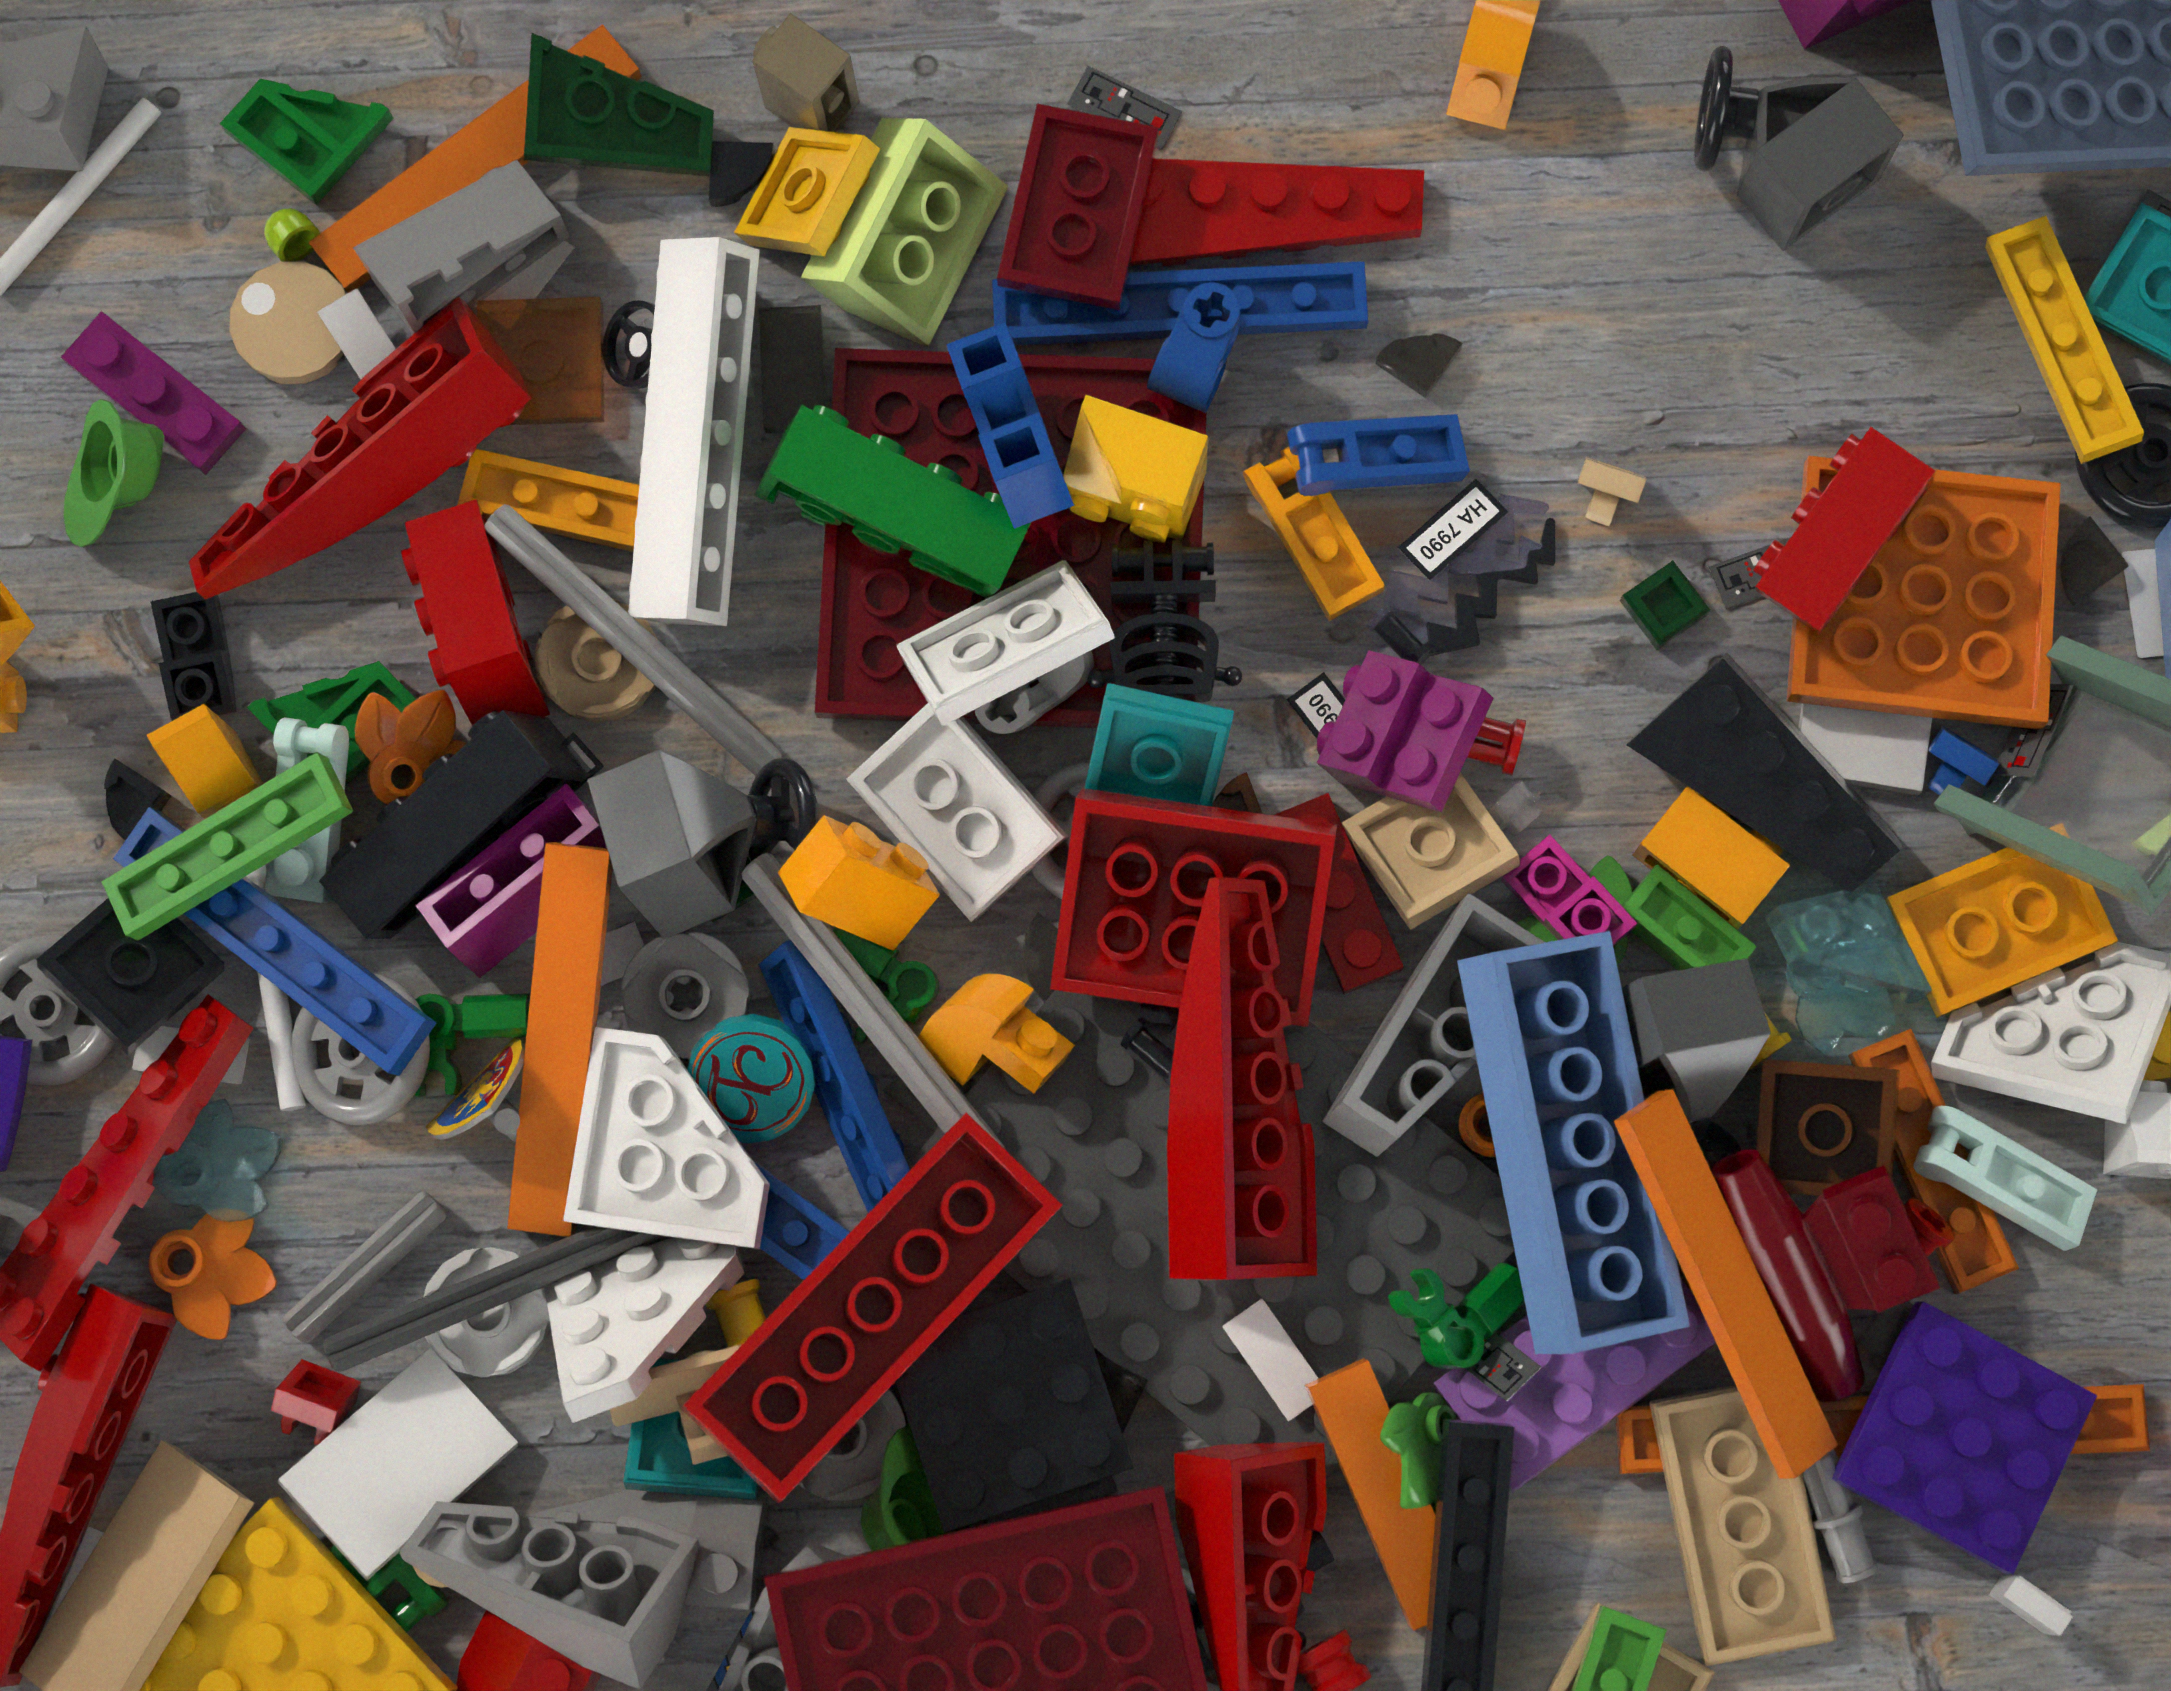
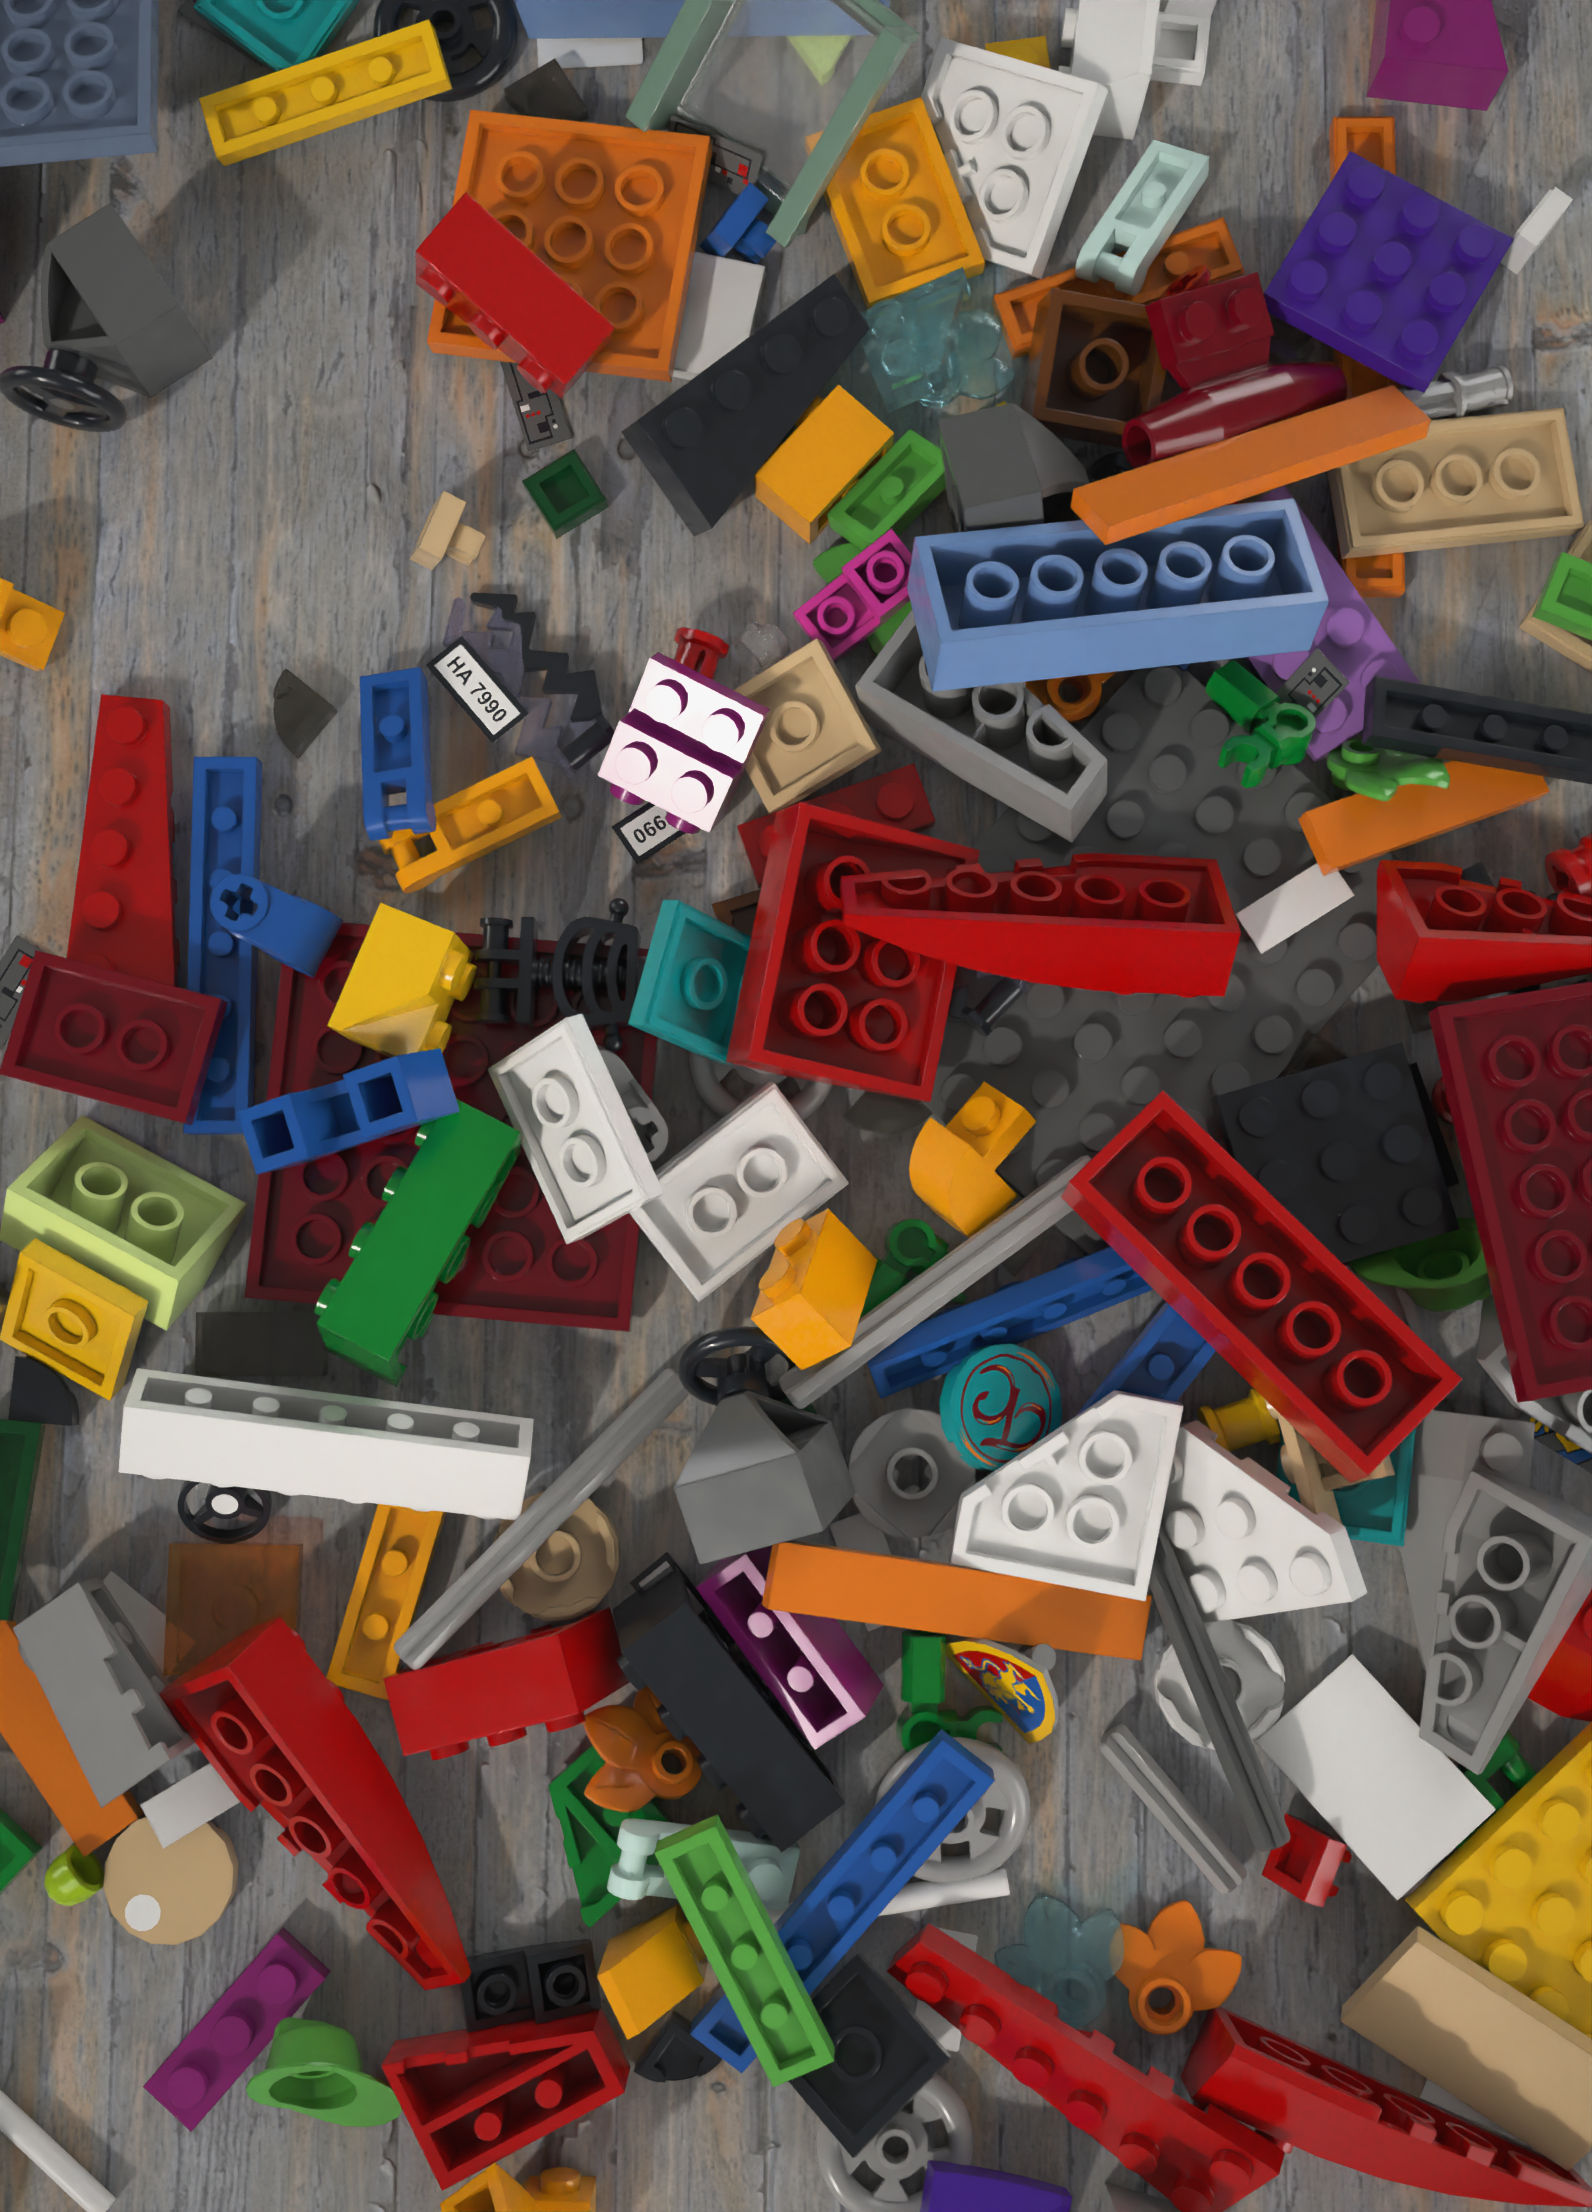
camera: 90 degrees left, 5 degrees up
(102, 632) = (502, 2086): none -> red wedge

